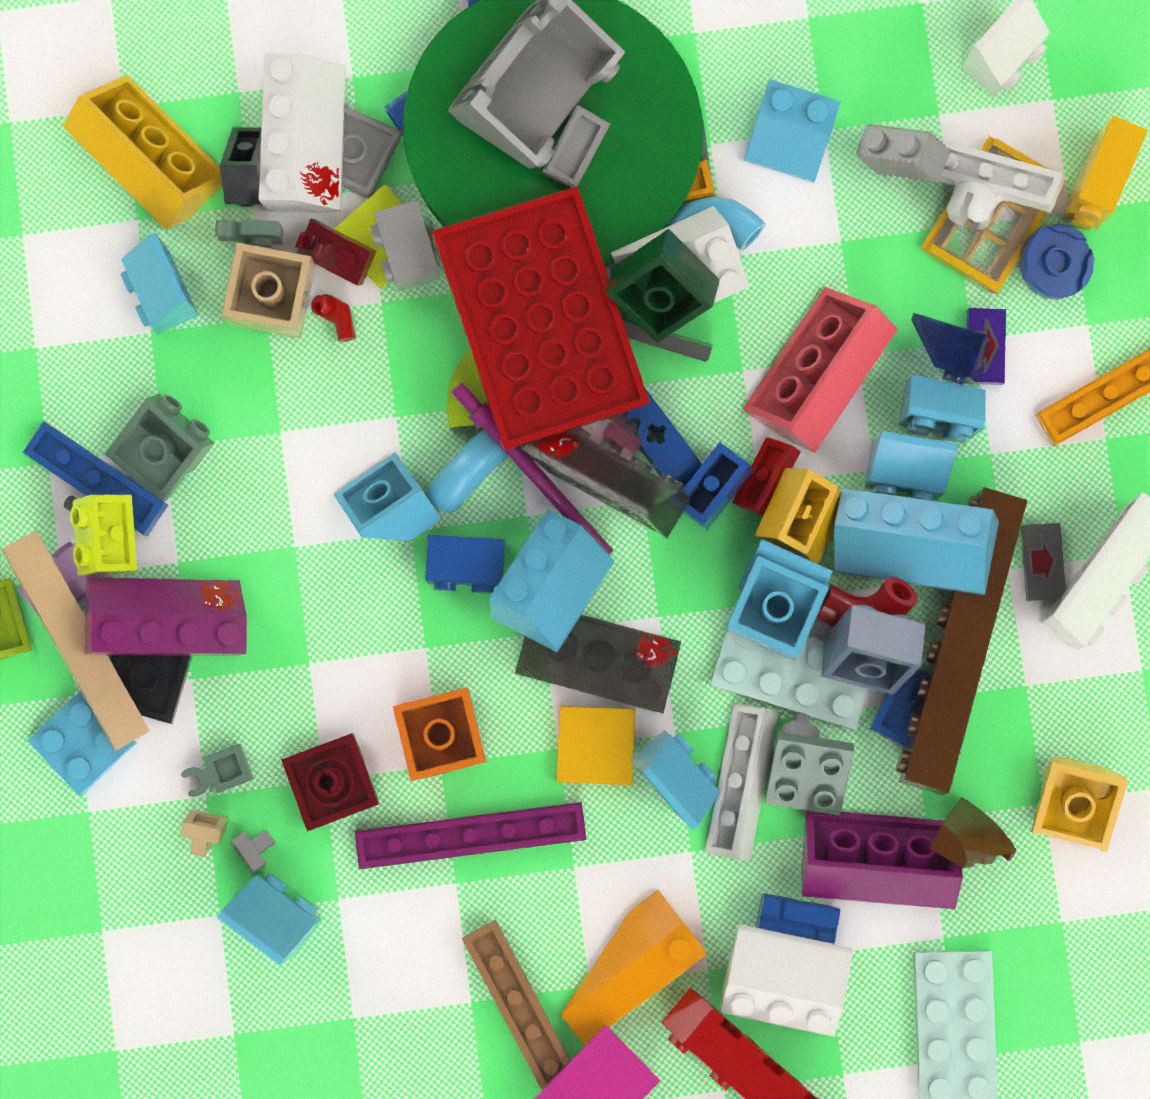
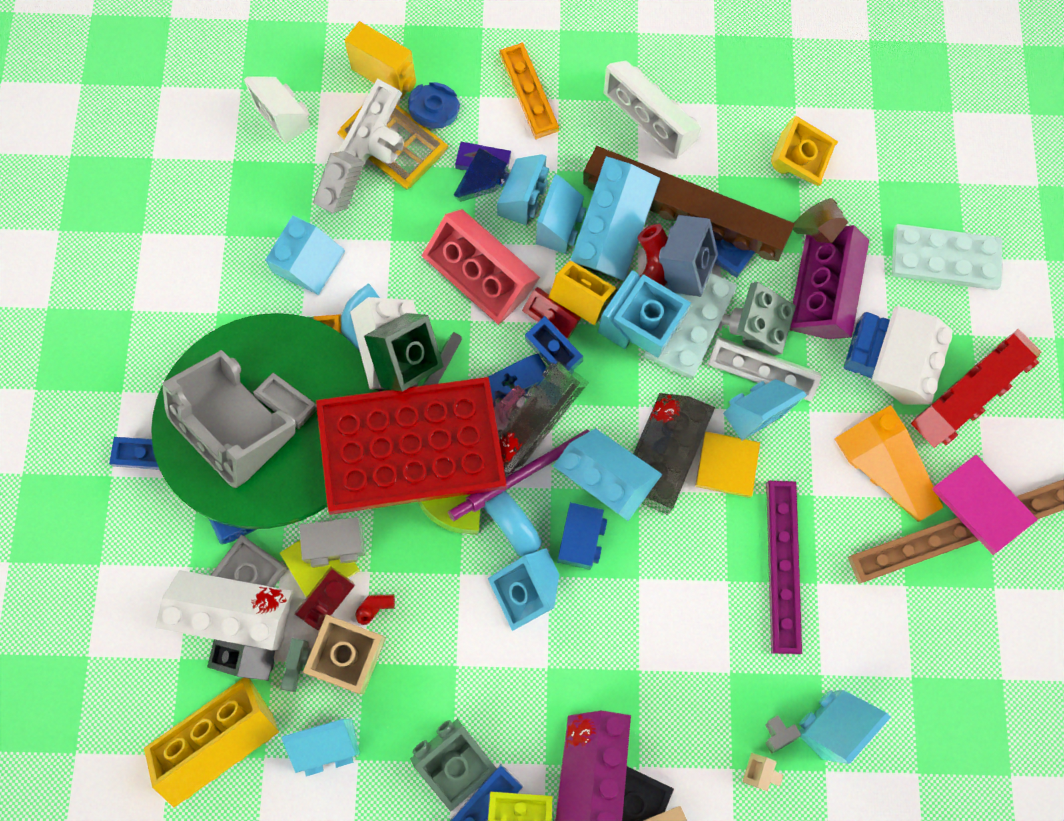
camera: 85 degrees left, 10 degrees down
(224, 770) = (716, 749): sand green plate -> none
(330, 782) = (734, 666): dark red plate -> none
(439, 734) = (710, 573): orange brick -> none
(1043, 561) = (638, 148): dark grey tile -> none

